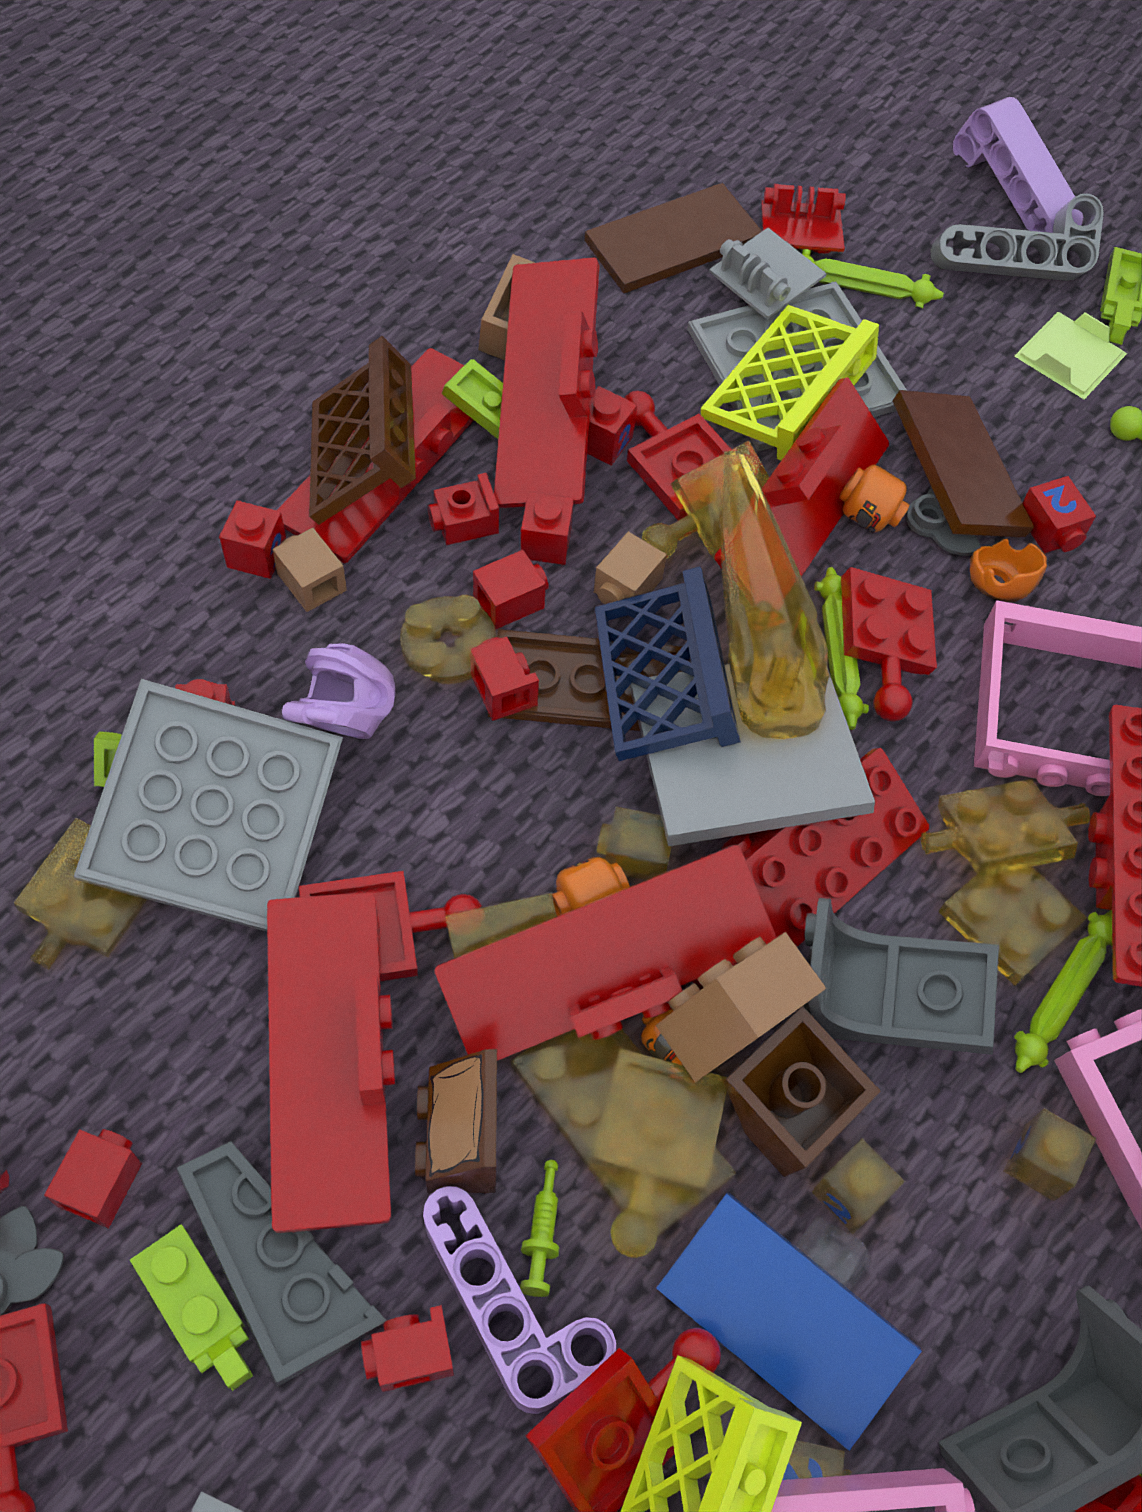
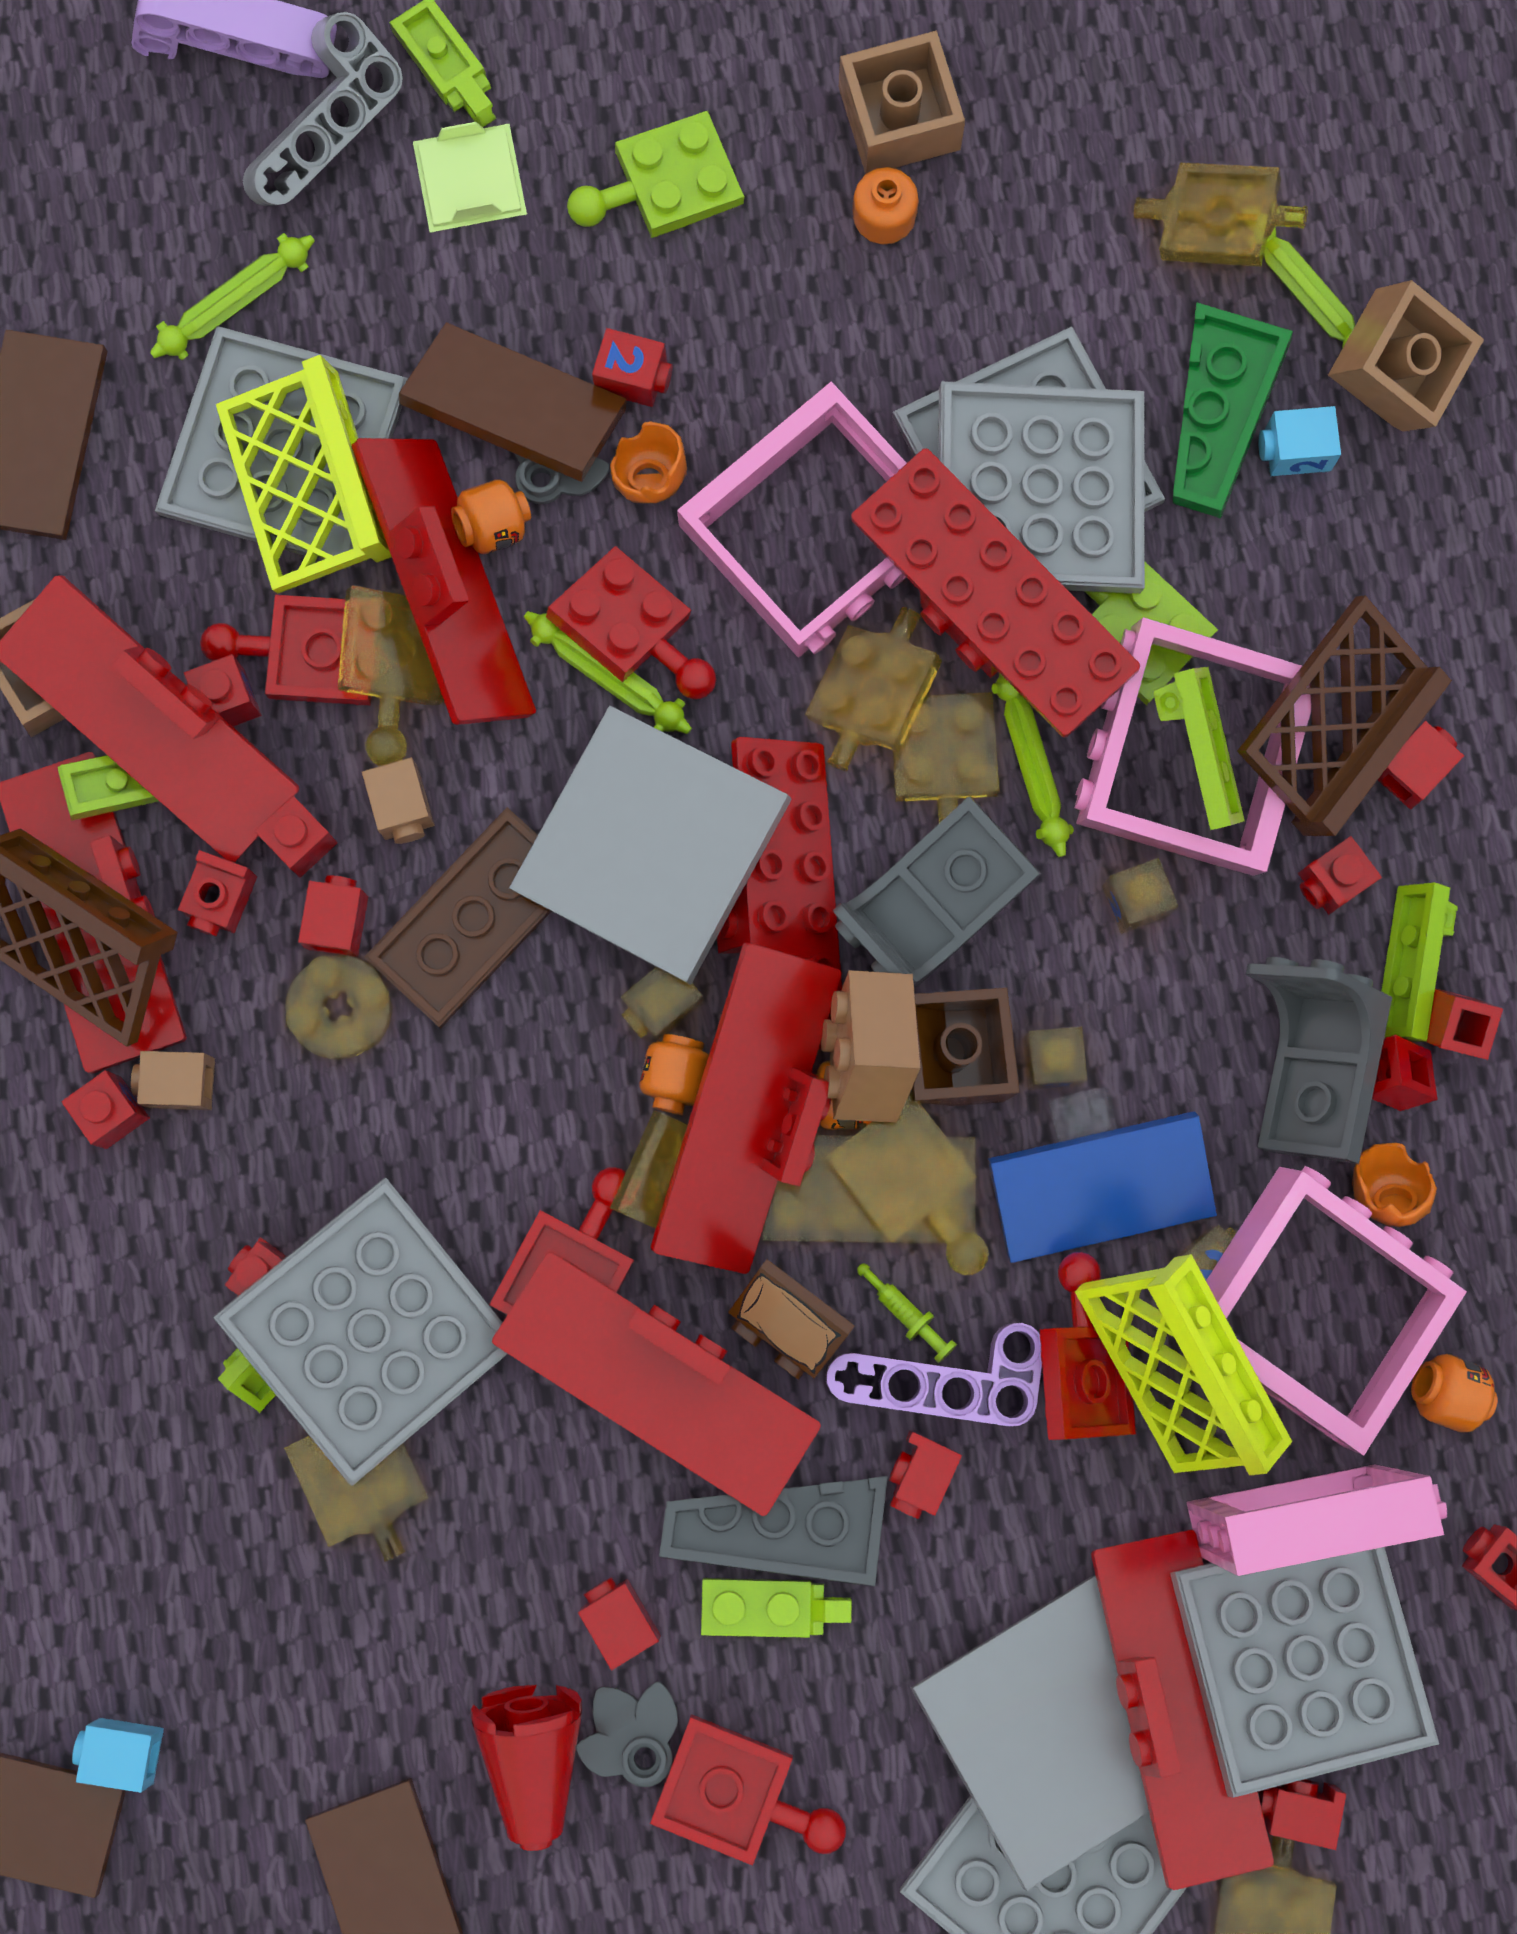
camera: 45 degrees left, 20 degrees up
(346, 693) = (342, 1145): lavender helmet -> none
(503, 678) = (424, 996): red brick -> none
(706, 667) = (550, 815): dark blue fence -> none
(766, 272) = (161, 390): light grey hinge -> none
(771, 621) = (552, 731): clear yellow piece -> none
(805, 224) = (121, 296): red hinge -> none

